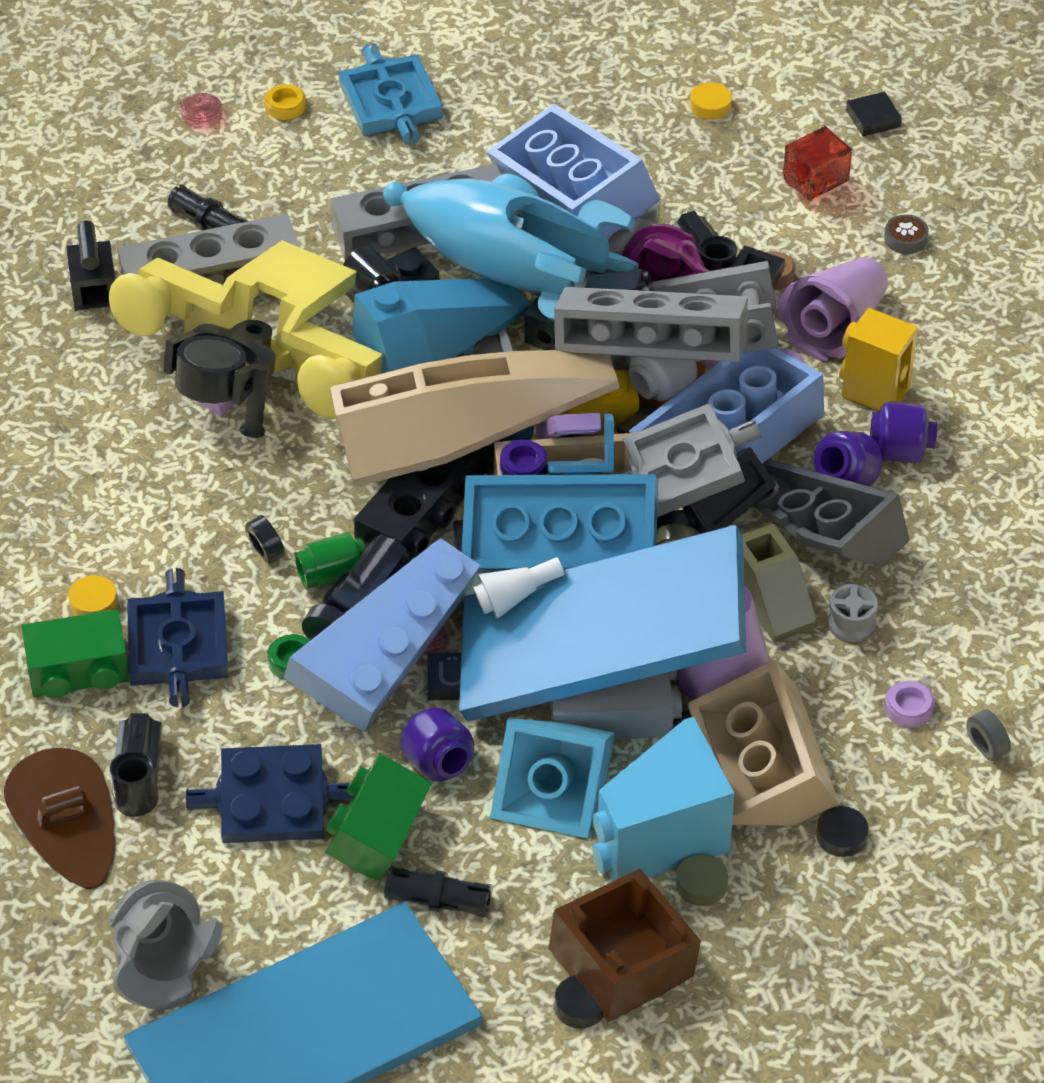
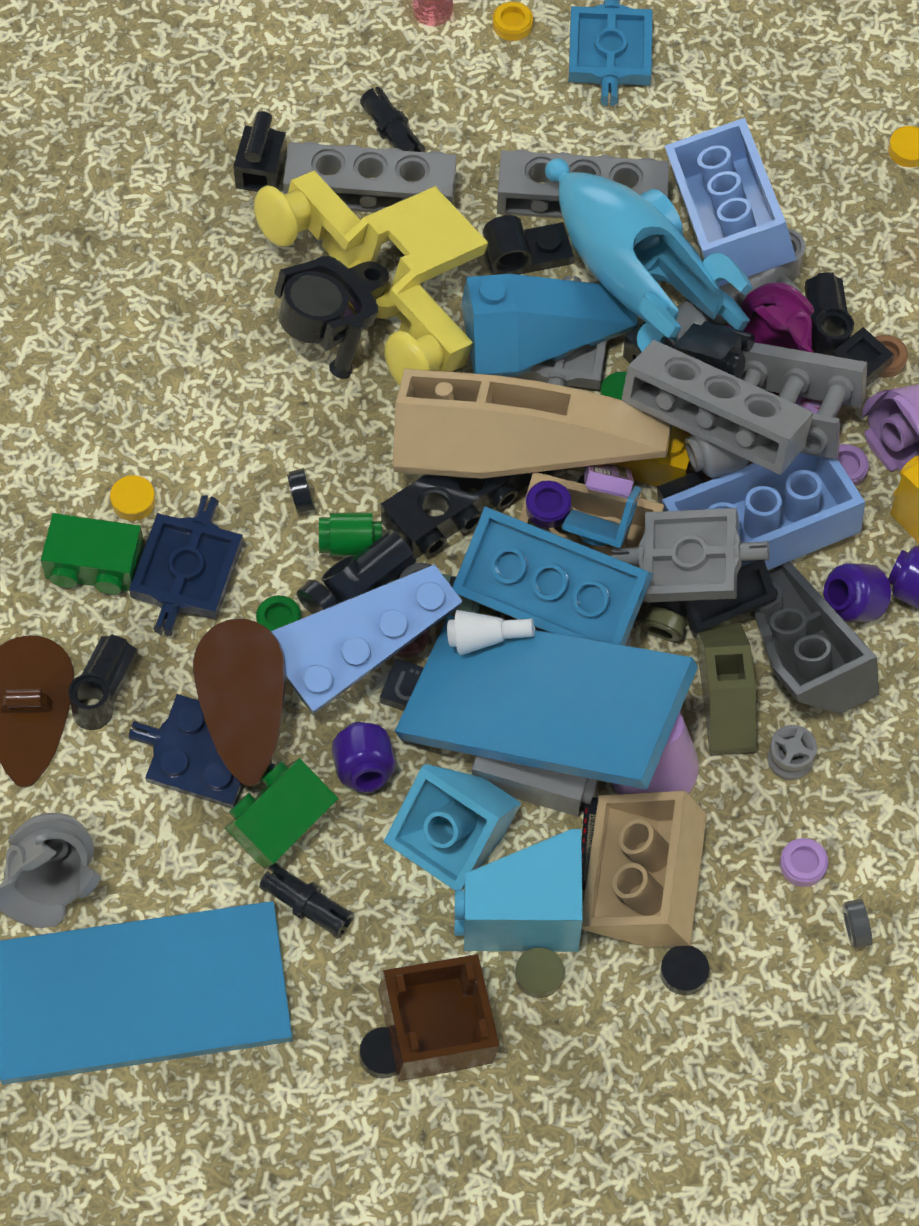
camera: 20 degrees right, 15 degrees up
(294, 717) = (241, 694): none -> reddish brown shield

